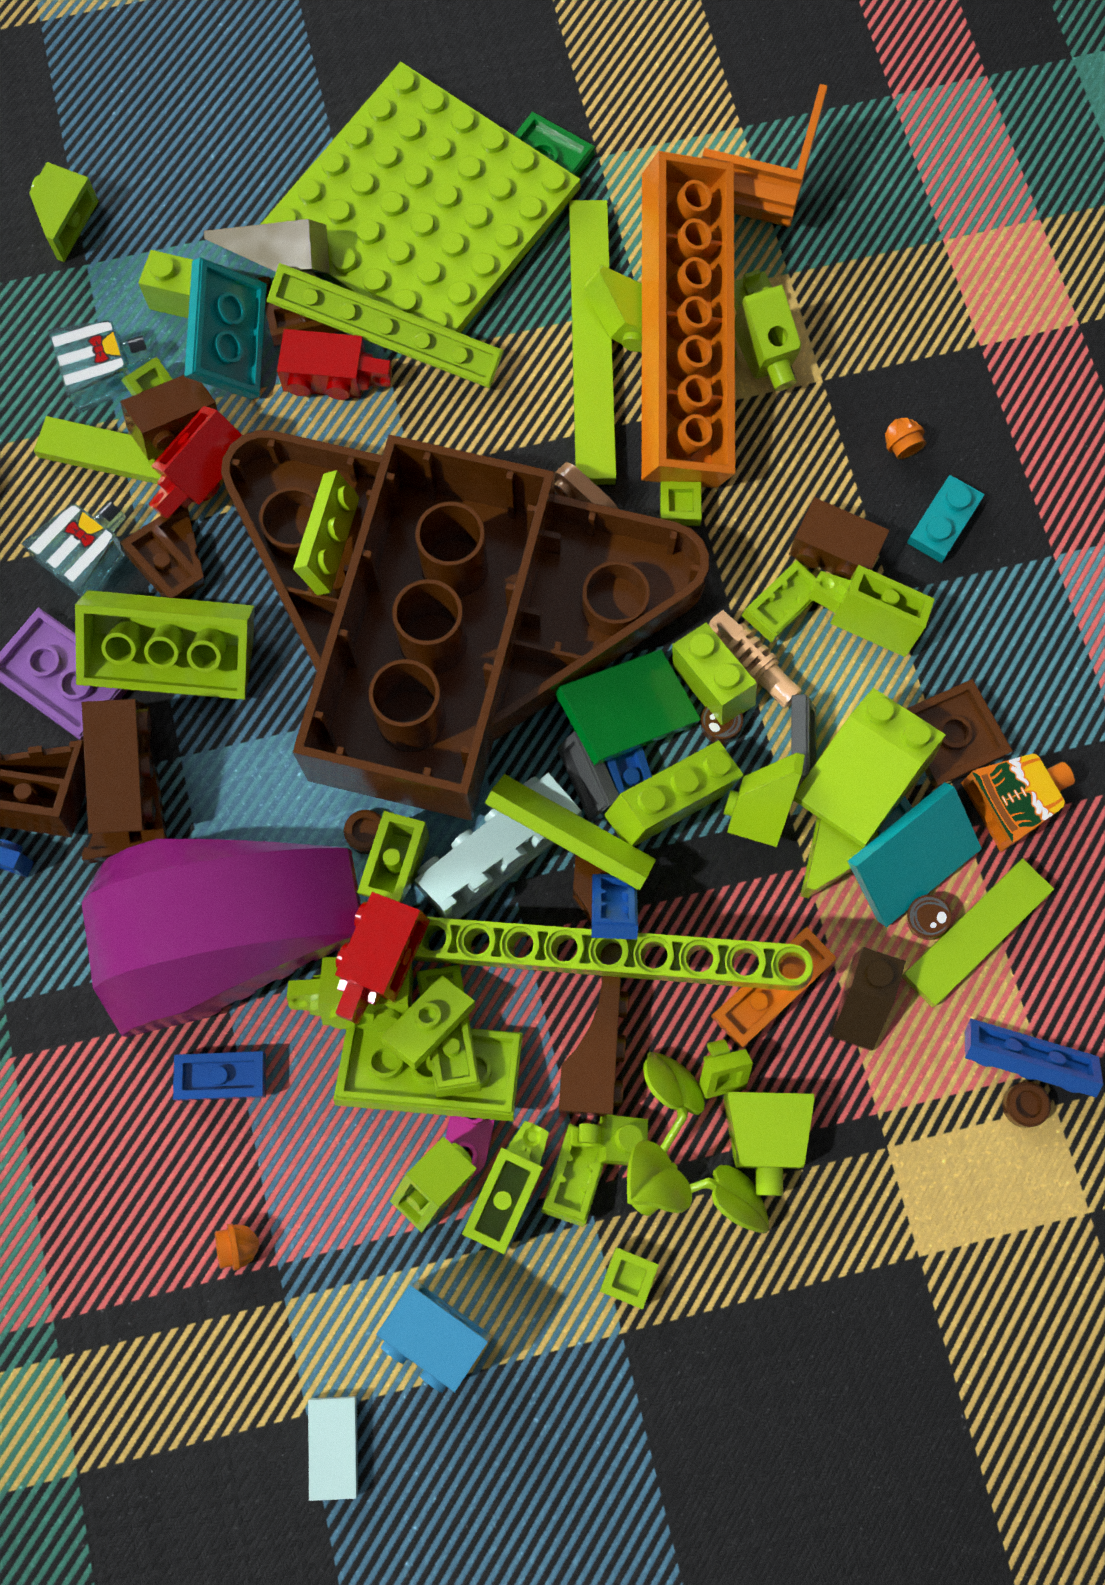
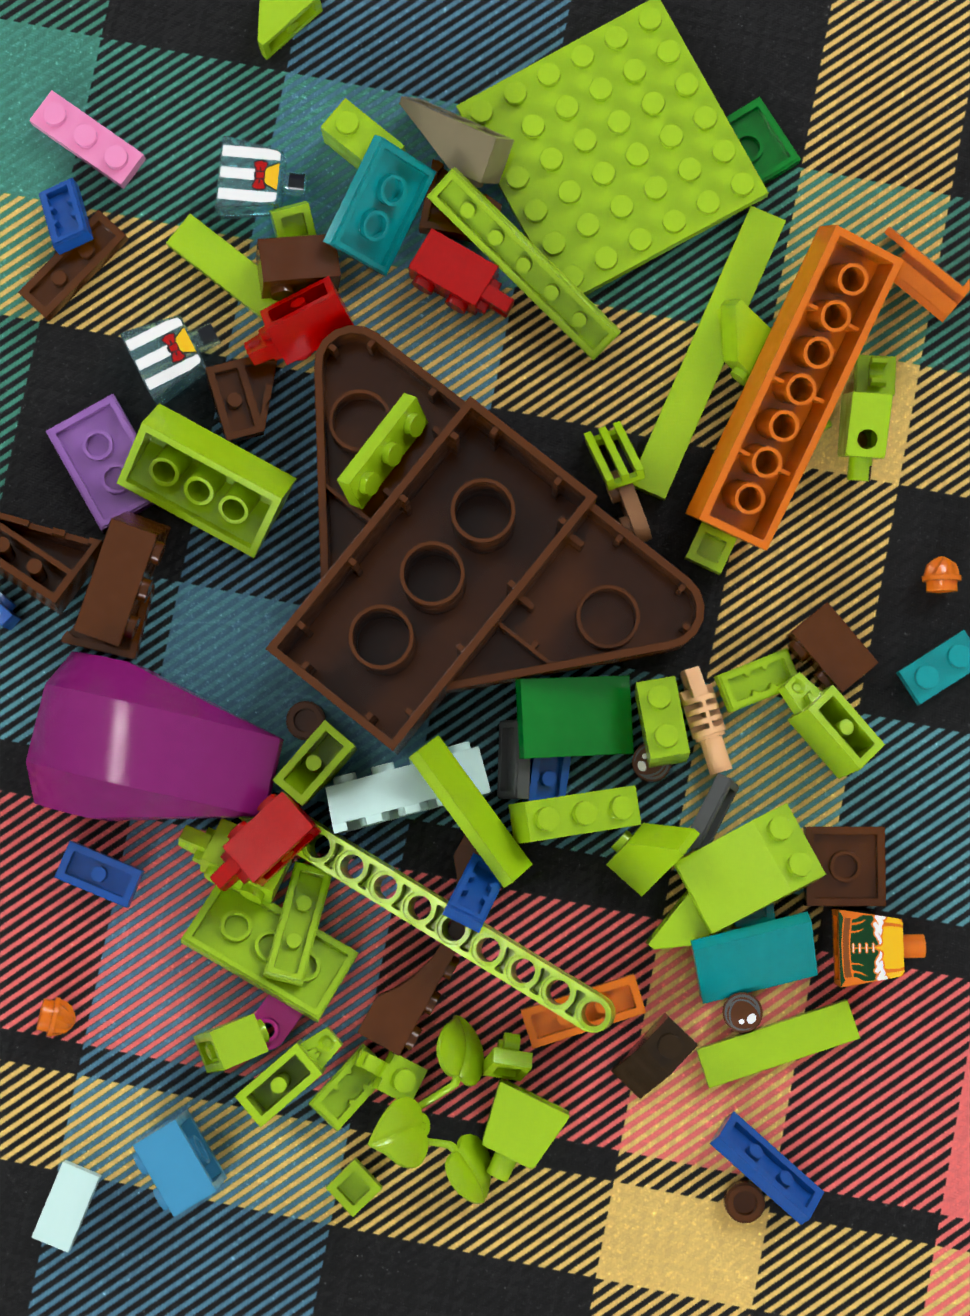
camera: 30 degrees right, 10 degrees up
(428, 1022) = (283, 912): lime plate -> none
(556, 451) = (607, 437): none -> lime tile

